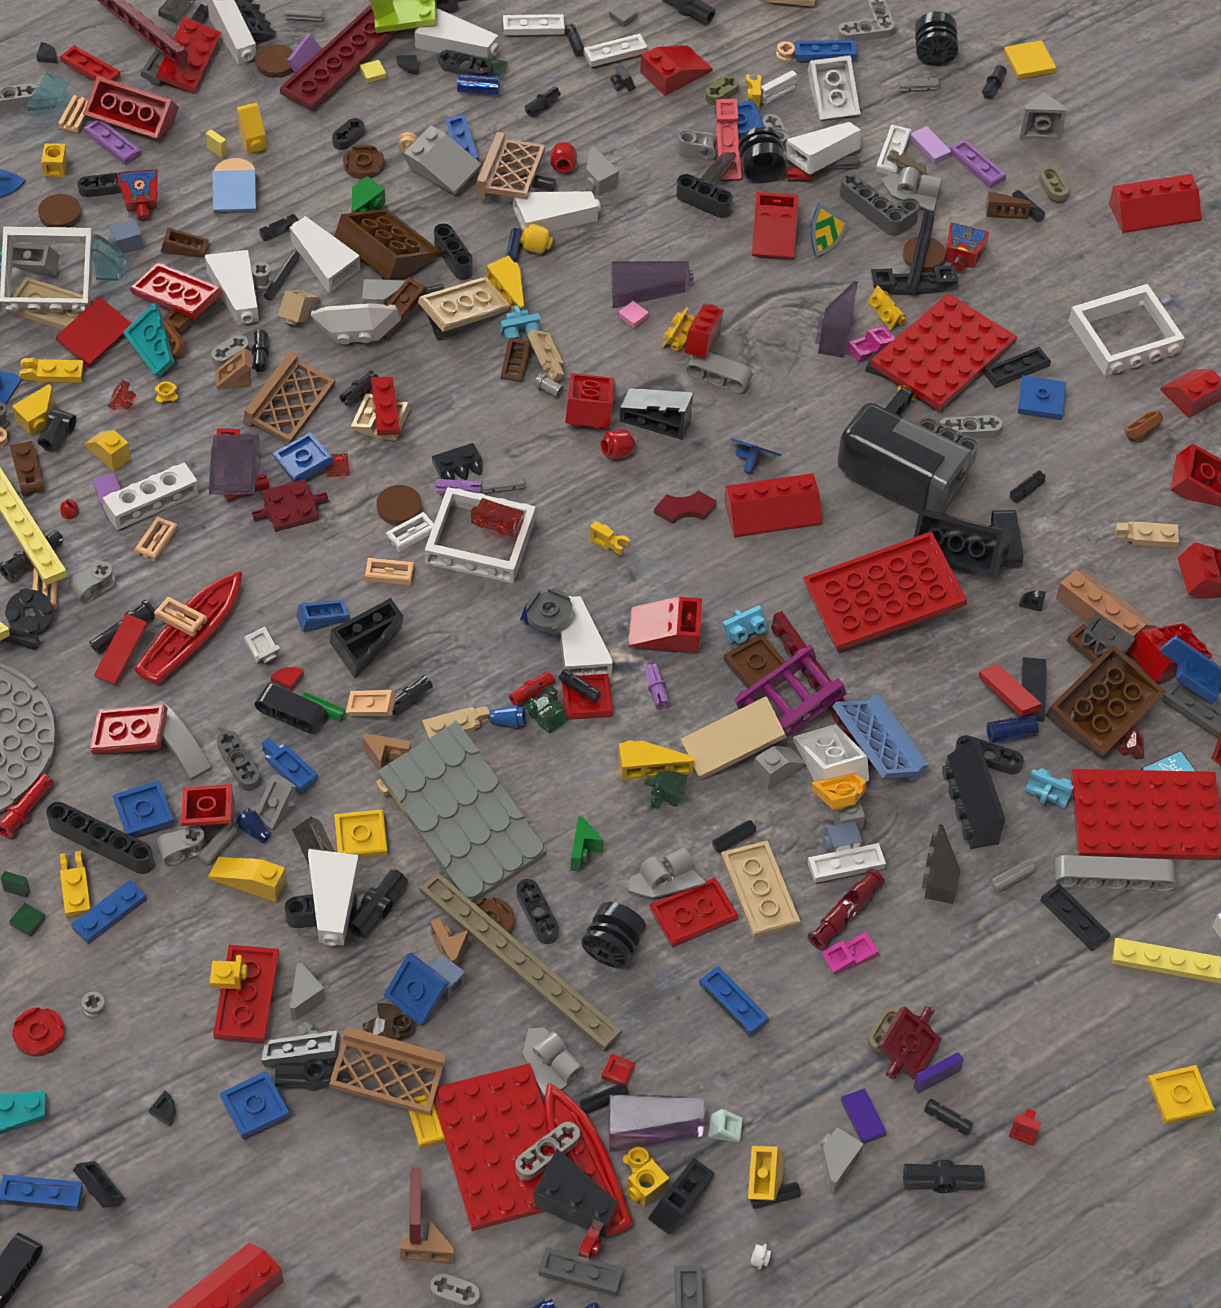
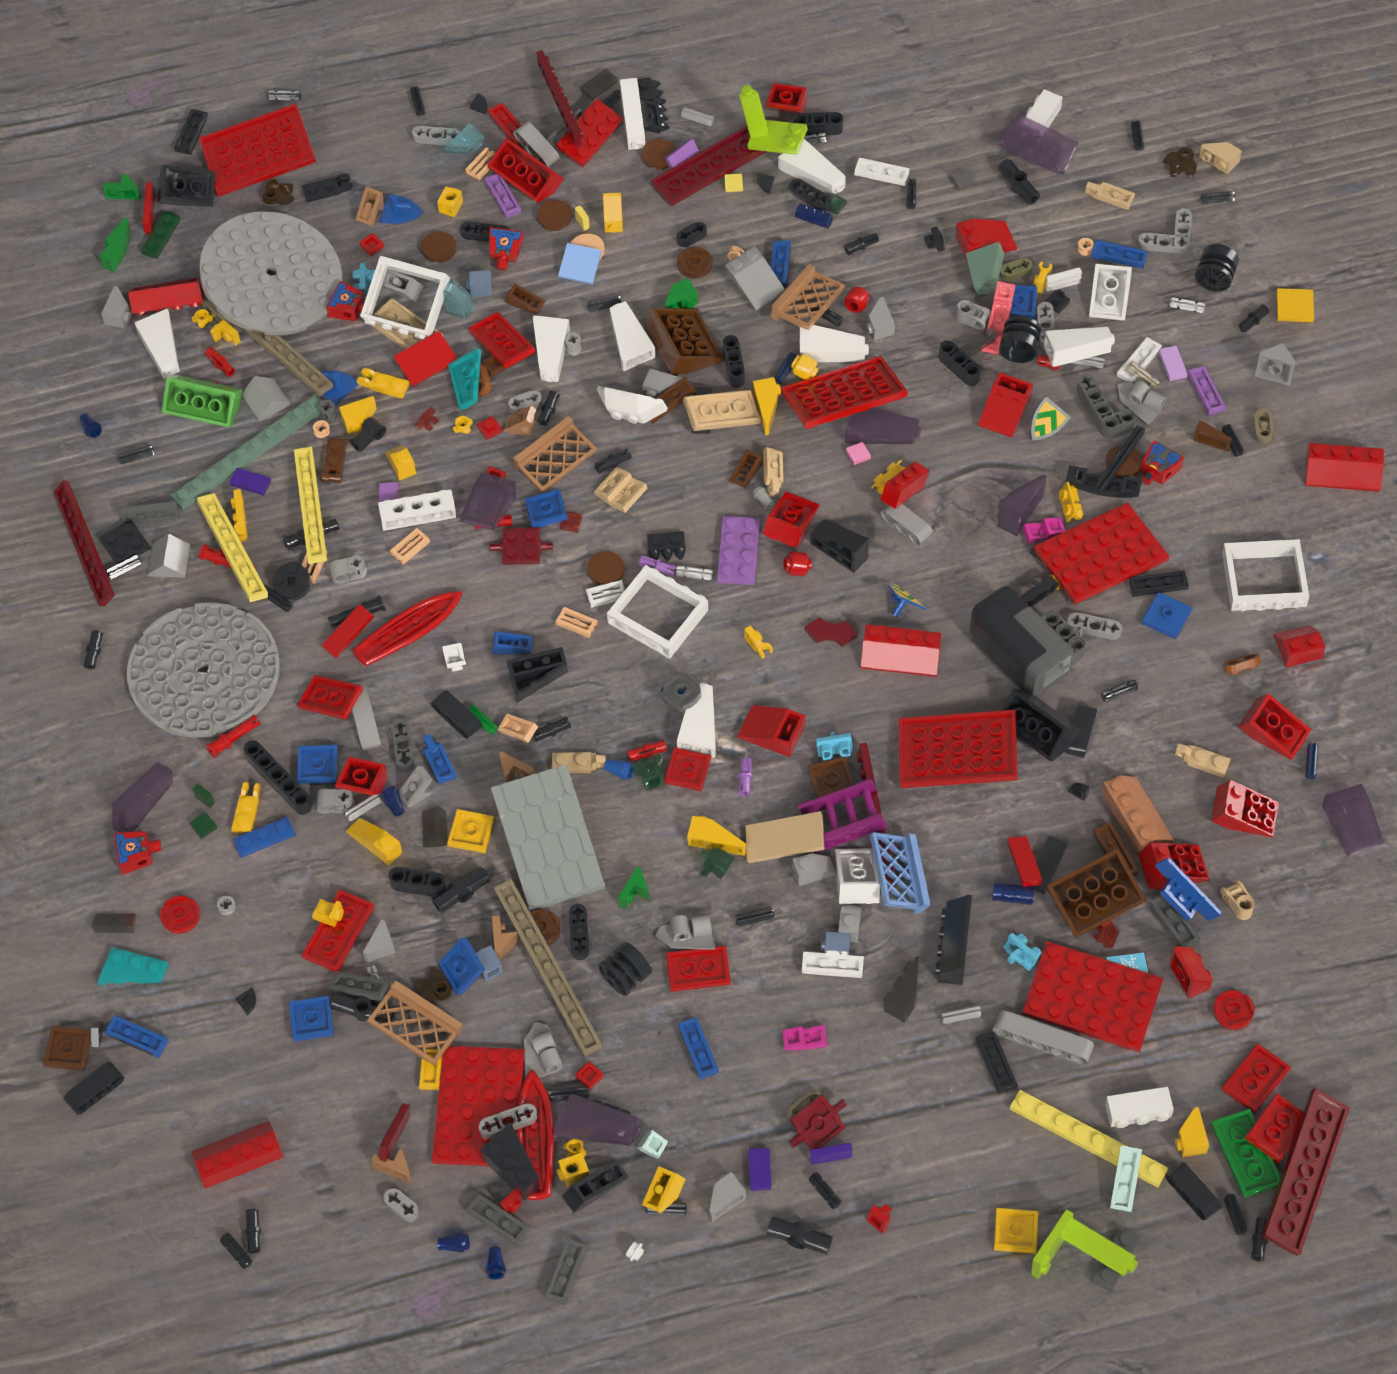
camera: 25 degrees right, 5 degrees up
(66, 512) = (355, 508): red hinge -> none
(98, 1184) = (179, 1043): black plate -> none
(127, 73) = (536, 144): none -> light grey beam
(178, 619) = (410, 627): light nougat tile -> none
(182, 148) = (554, 215): none -> reddish brown tile
(199, 388) = (489, 427): none -> red plate
(281, 275) = (579, 356): black bar -> none
(287, 677) = (465, 688): red tile -> none
(297, 306) = (591, 376): tan slope -> none
(333, 891) = (426, 871): white slope -> none
(385, 406) = (625, 482): red plate -> none
(497, 517) = (672, 601): clear red bracket -> none
(517, 322) = (752, 439): medium azure hips -> none
(543, 448) = (738, 550): none -> medium lavender plate
(579, 685) = (683, 759): black axle -> none
(593, 252) = (843, 392): none -> red plate
(615, 50) = (940, 211): white plate -> none
(689, 93) = (985, 267): none -> sand green slope
(760, 889) = (757, 965): tan tile -> none
(781, 109) = (1058, 300): none -> black tile
(839, 915) = (813, 1003): dark red piece -> none
(840, 790) = (847, 905): light orange plate -> none
(1008, 754) = (984, 901): black beam -> none
(1107, 634) = (1123, 839): black plate -> none

